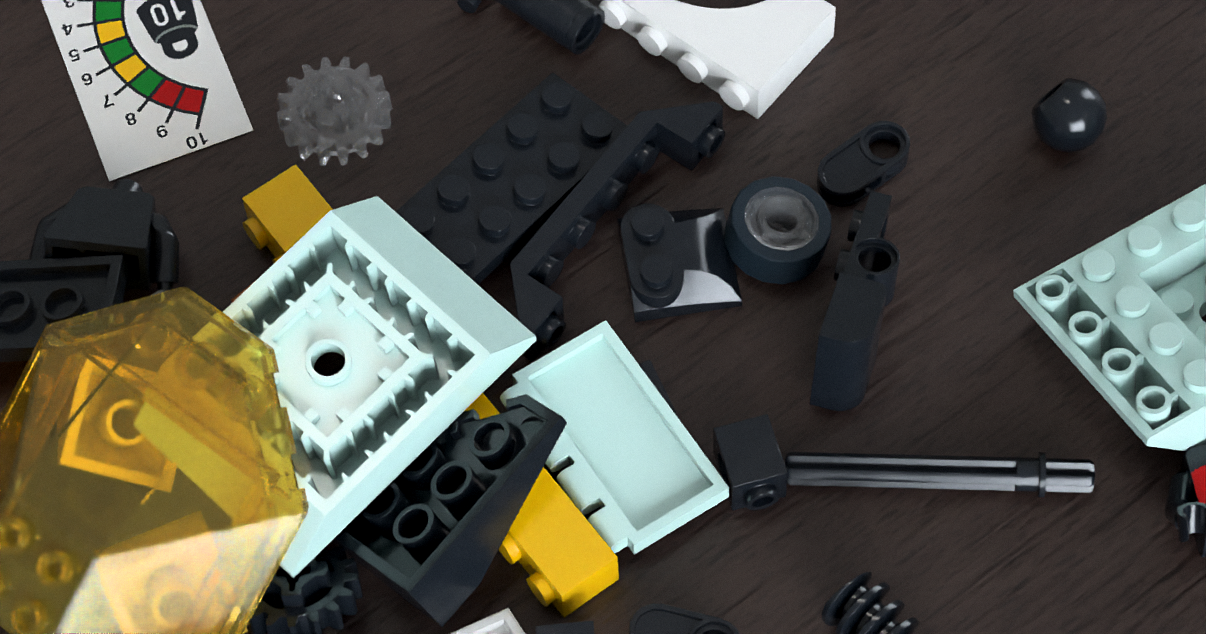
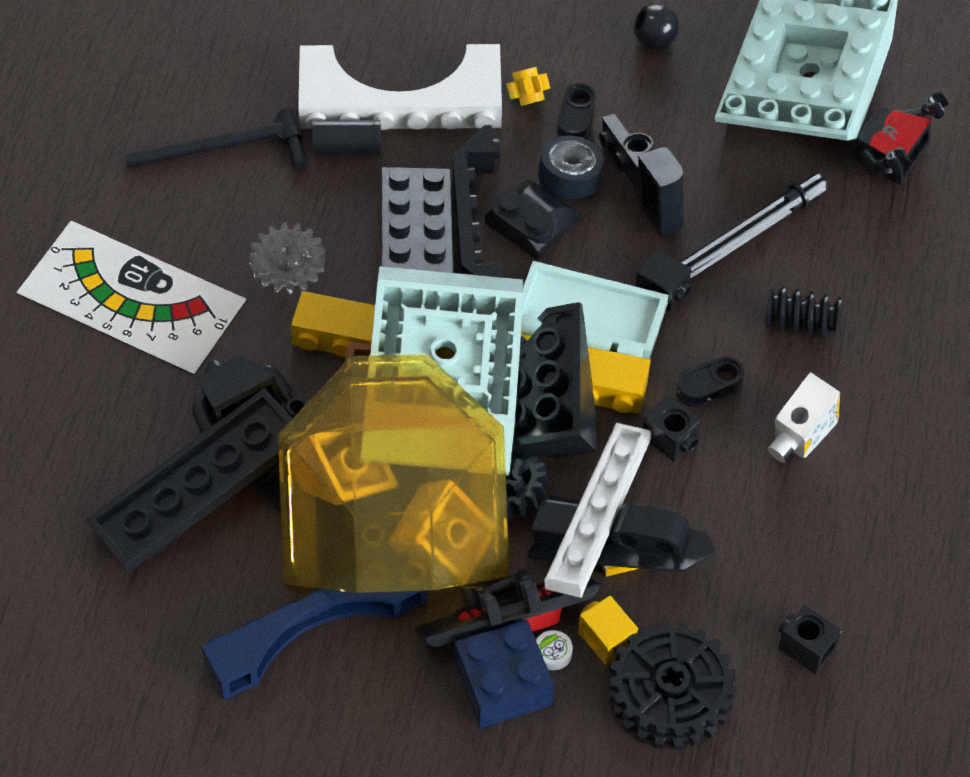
camera: 45 degrees left, 5 degrees down
(828, 86) = (528, 86): none -> yellow gear

